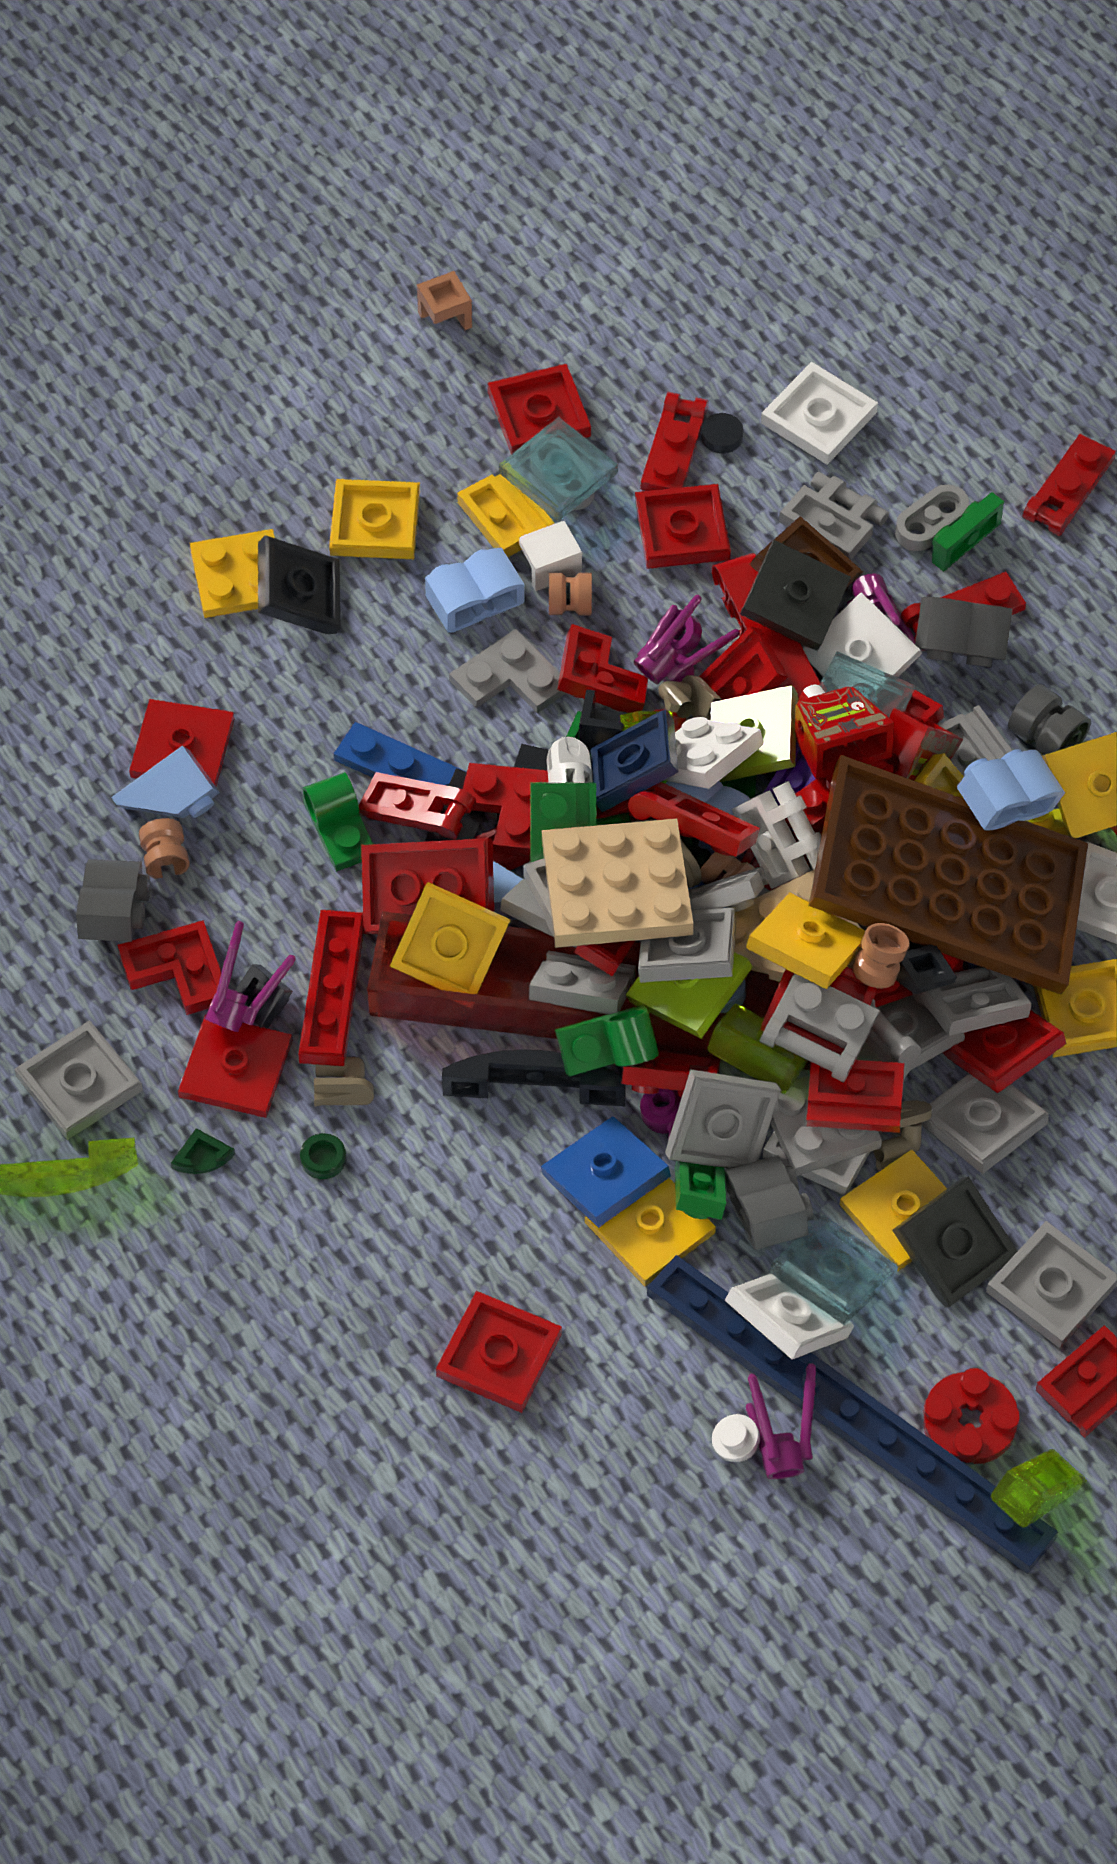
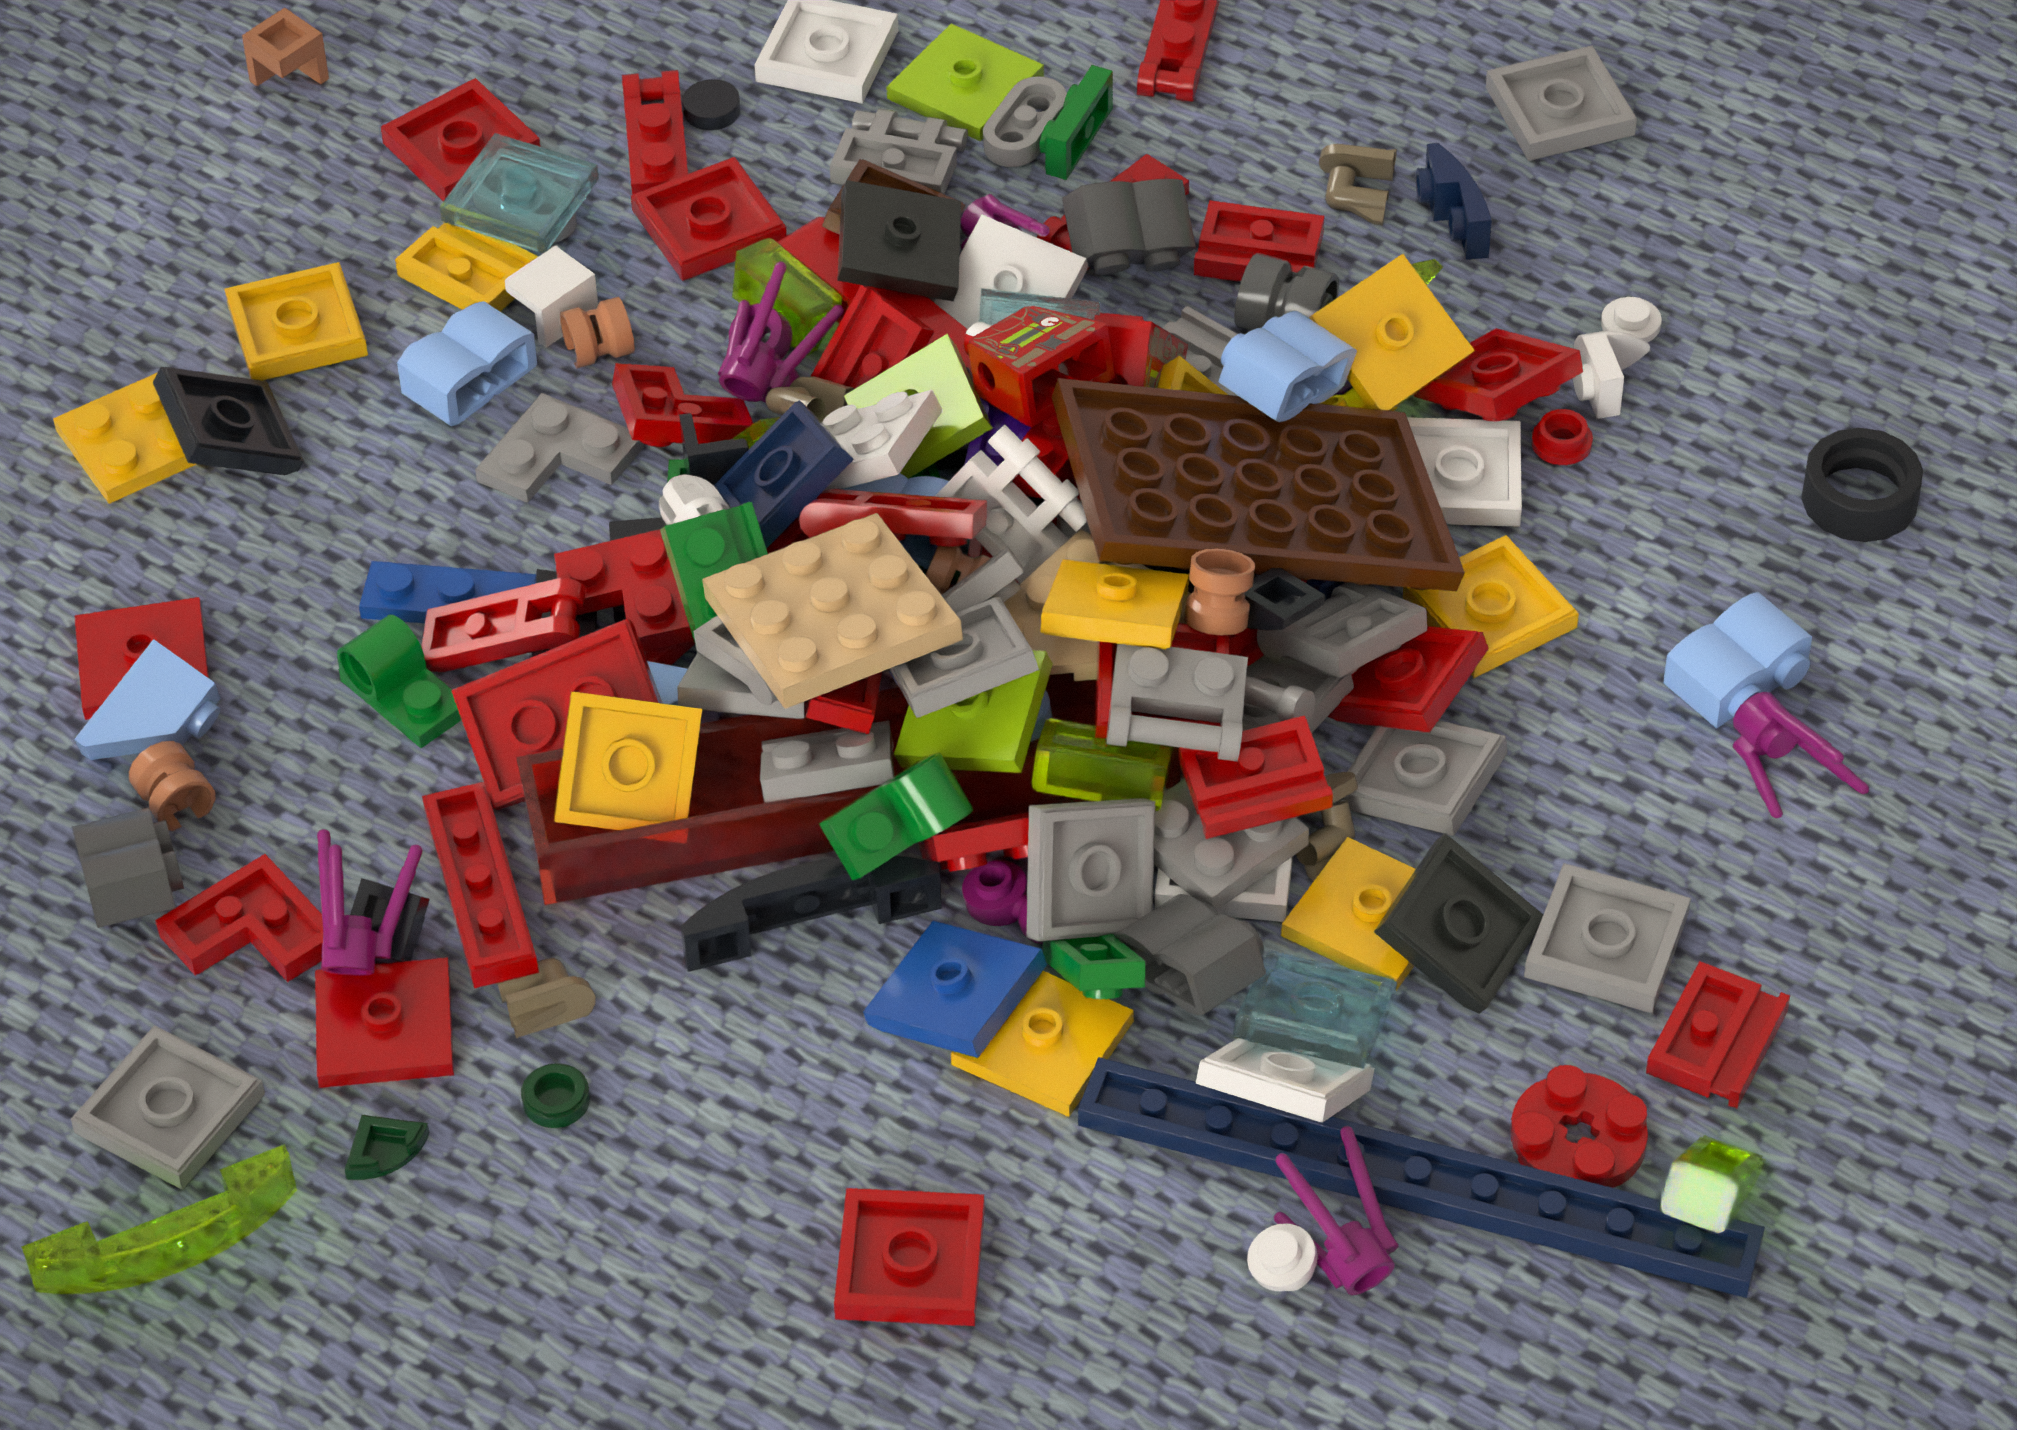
camera: 20 degrees left, 10 degrees down
(716, 608) = (802, 294): none -> clear neon green slope
(903, 468) = (961, 79): none -> lime plate
(1055, 664) = (1239, 231): none -> red plate

